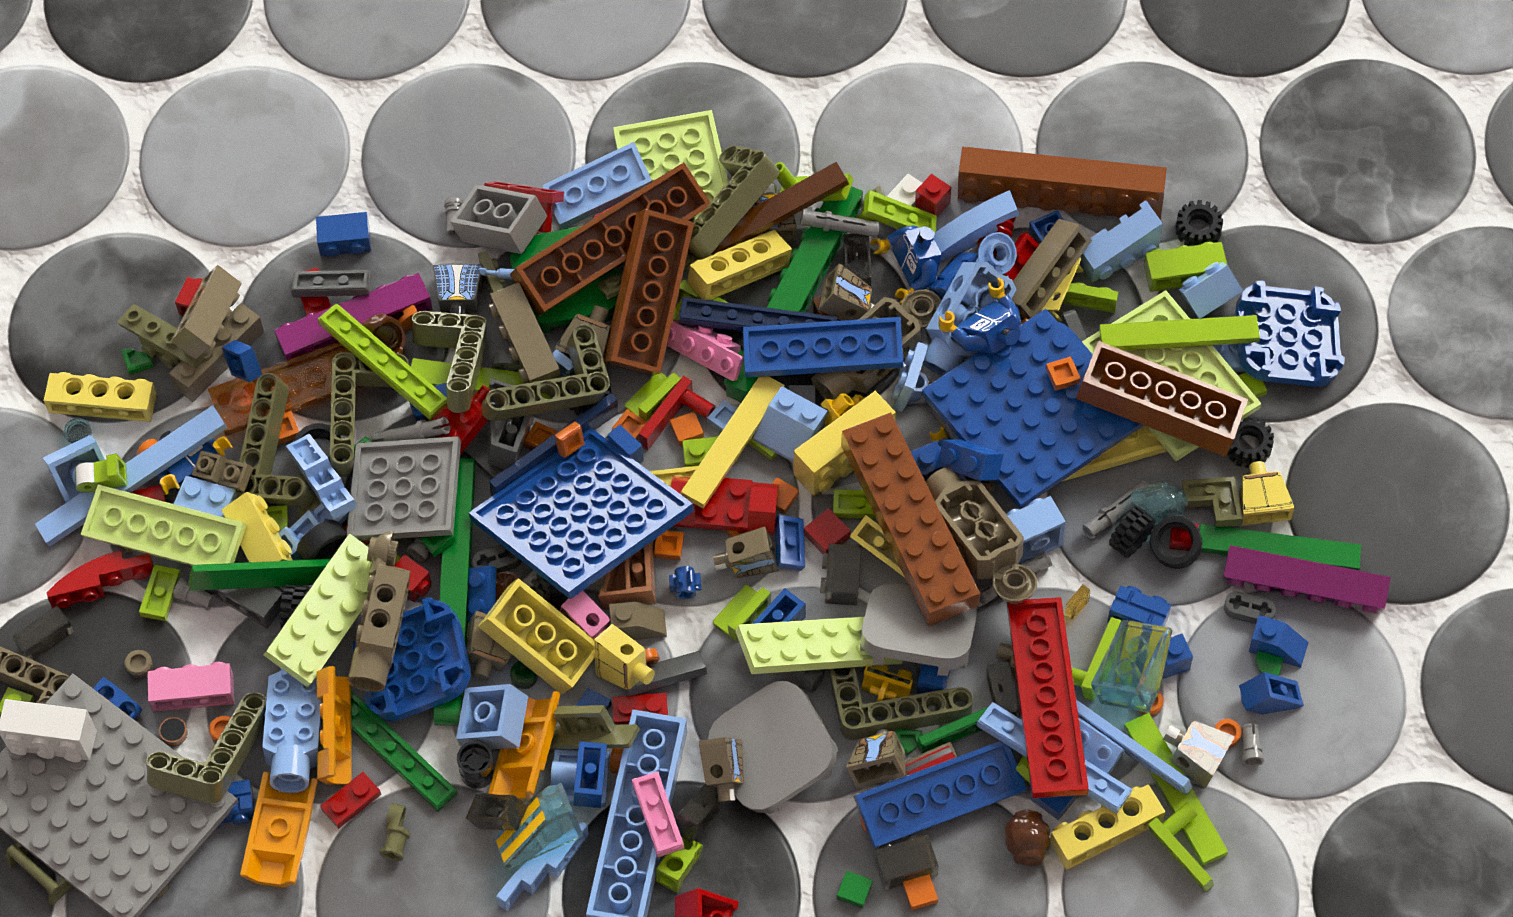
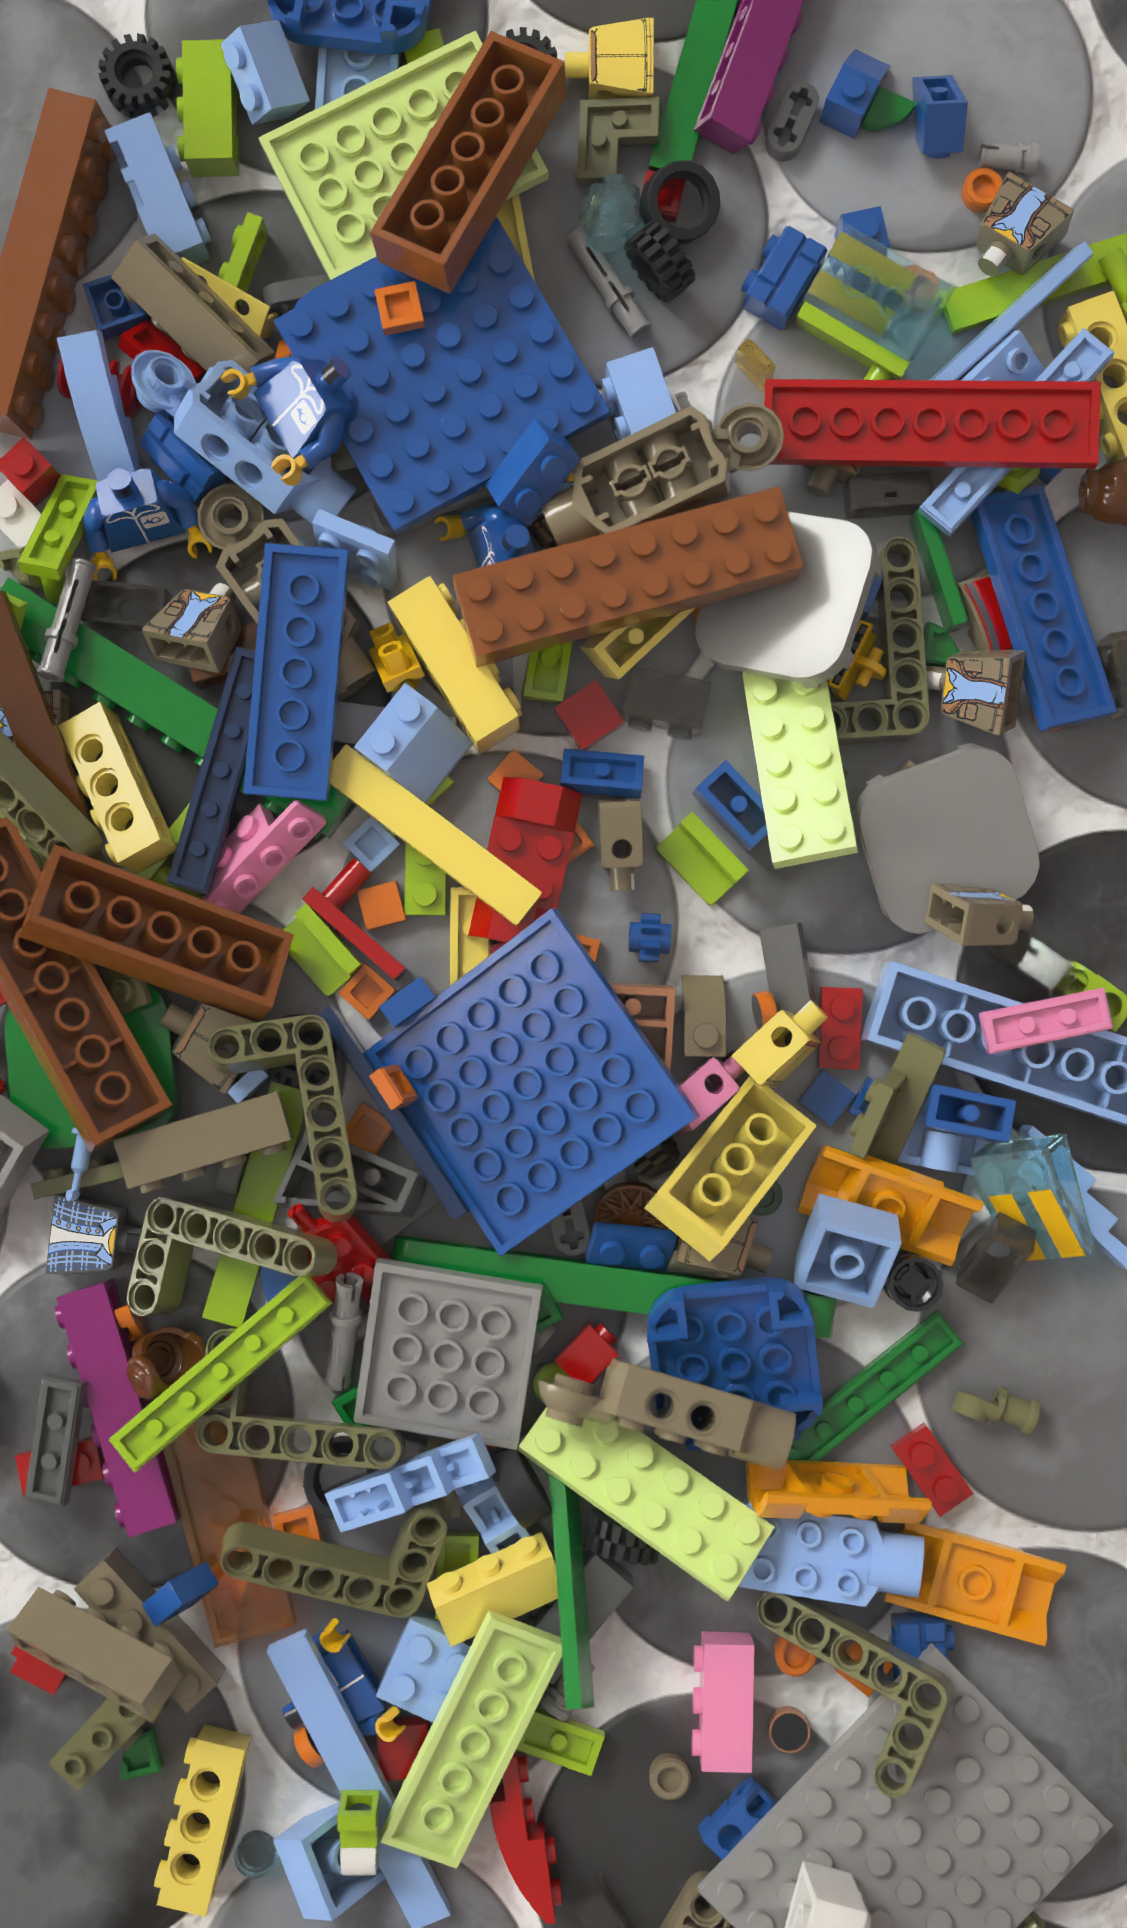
camera: 85 degrees left, 25 degrees up
(222, 471) = (374, 1637): dark tan slope -> none
(1181, 333) = (341, 127): lime tile -> none

